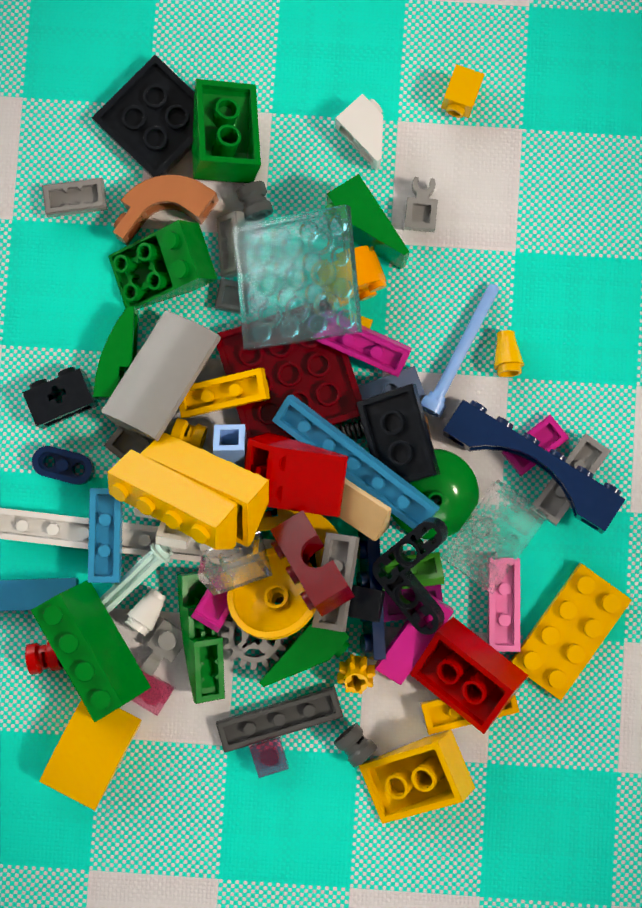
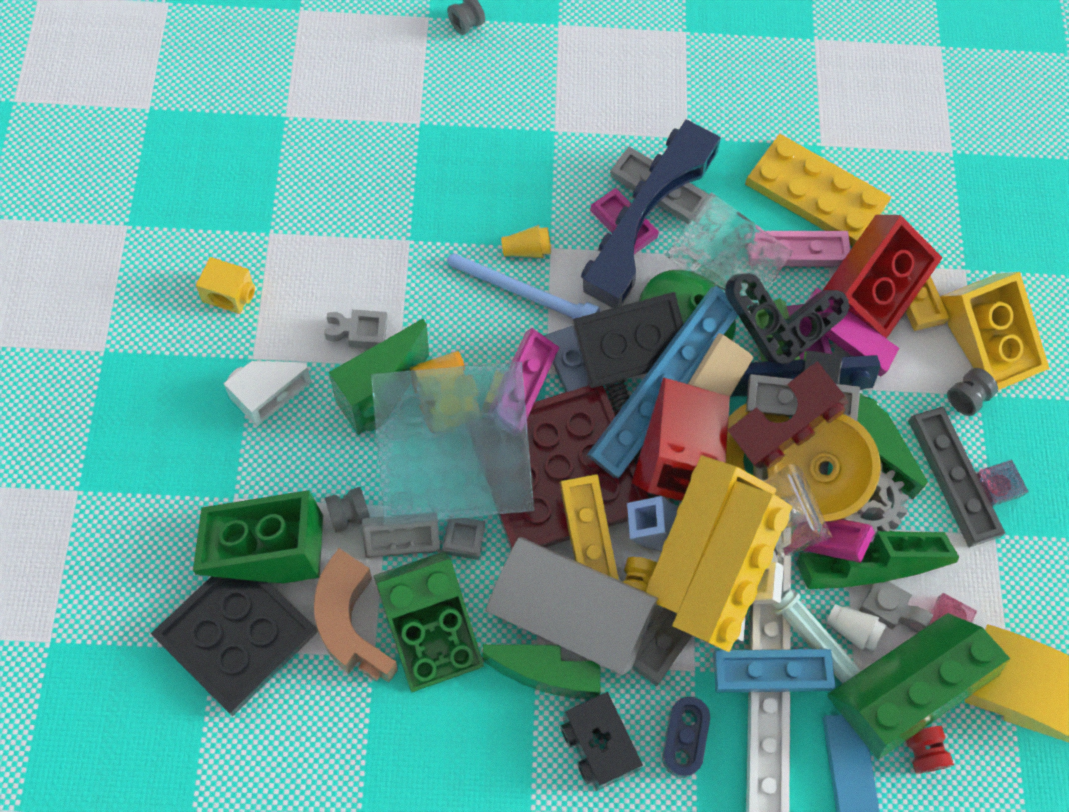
camera: 100 degrees left, 20 degrees down
(74, 197) = (335, 735): light grey plate -> none
(355, 674) = (896, 390): yellow gear -> none

